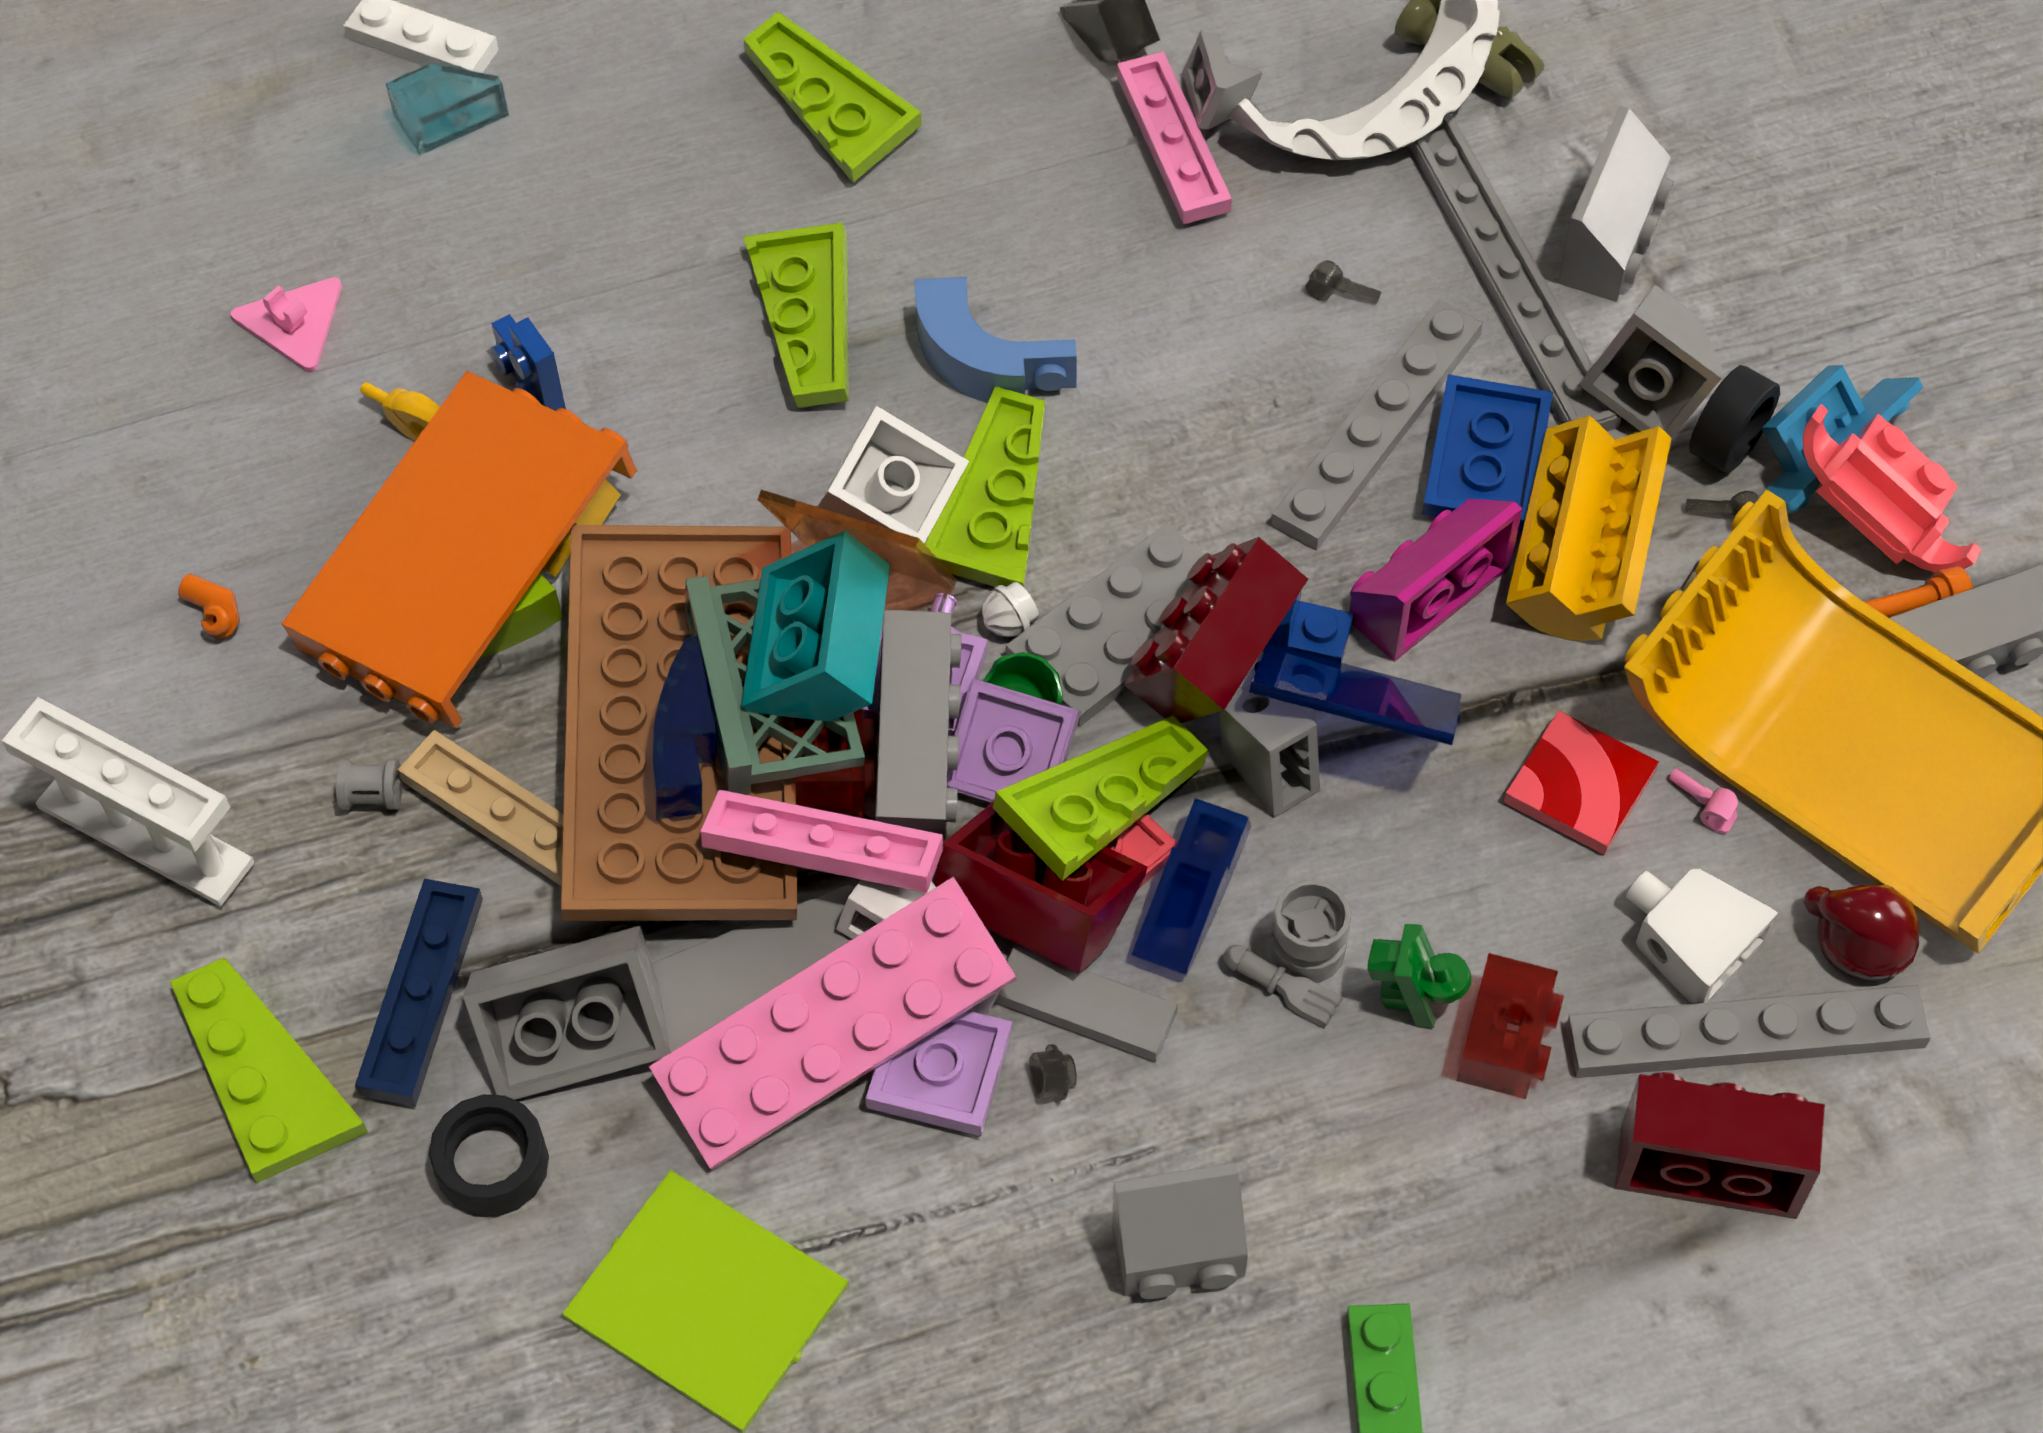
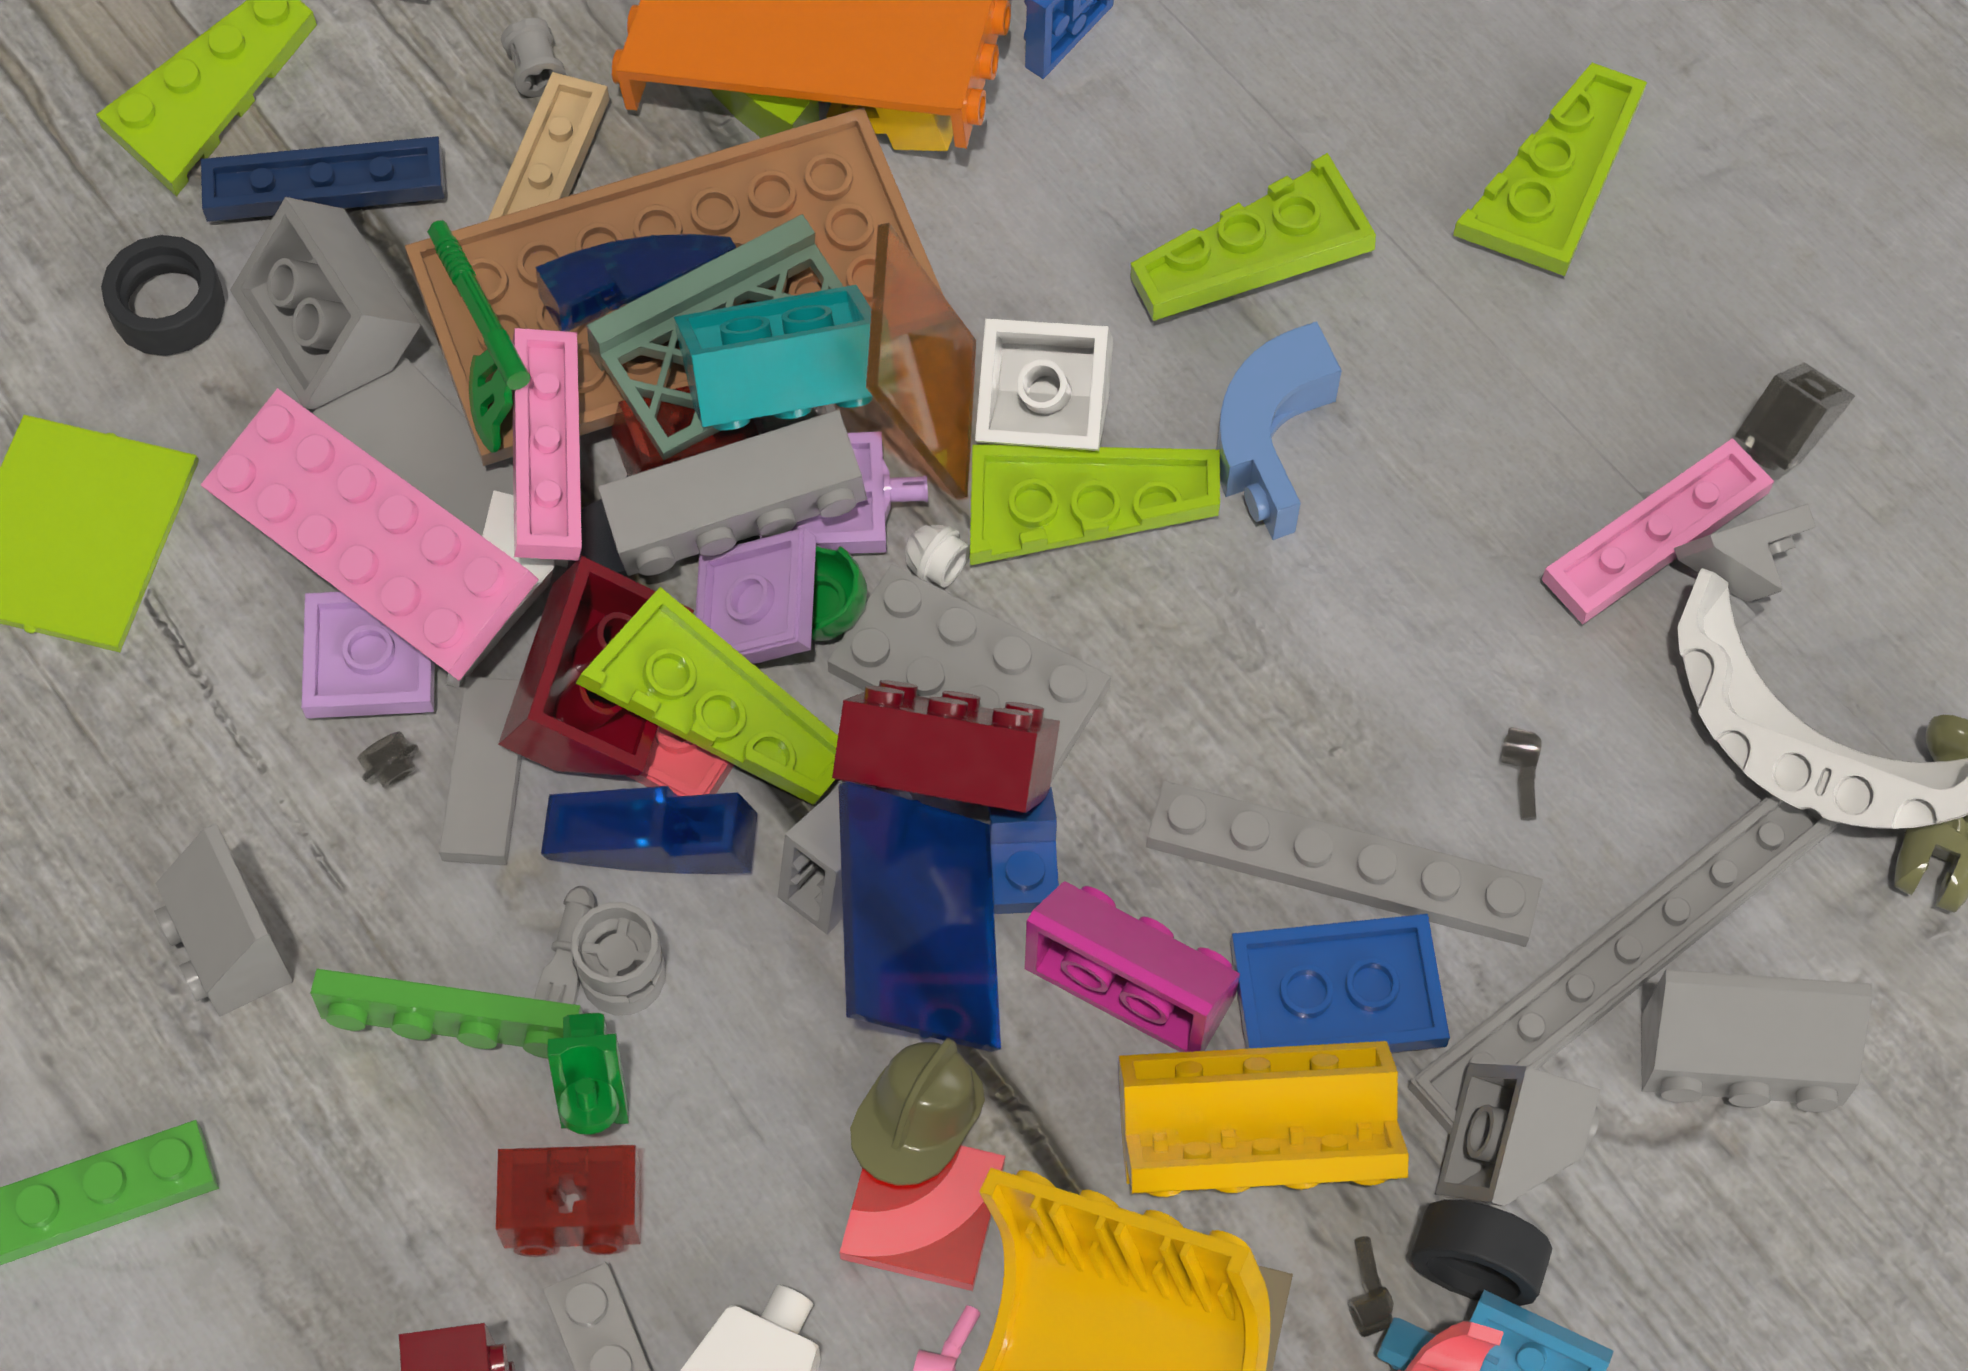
camera: 70 degrees right, 5 degrees up
(721, 844) = (500, 351): none -> green piece
(1305, 1098) = (427, 1009): none -> bright green plate
(1505, 758) = (917, 1114): none -> olive piece

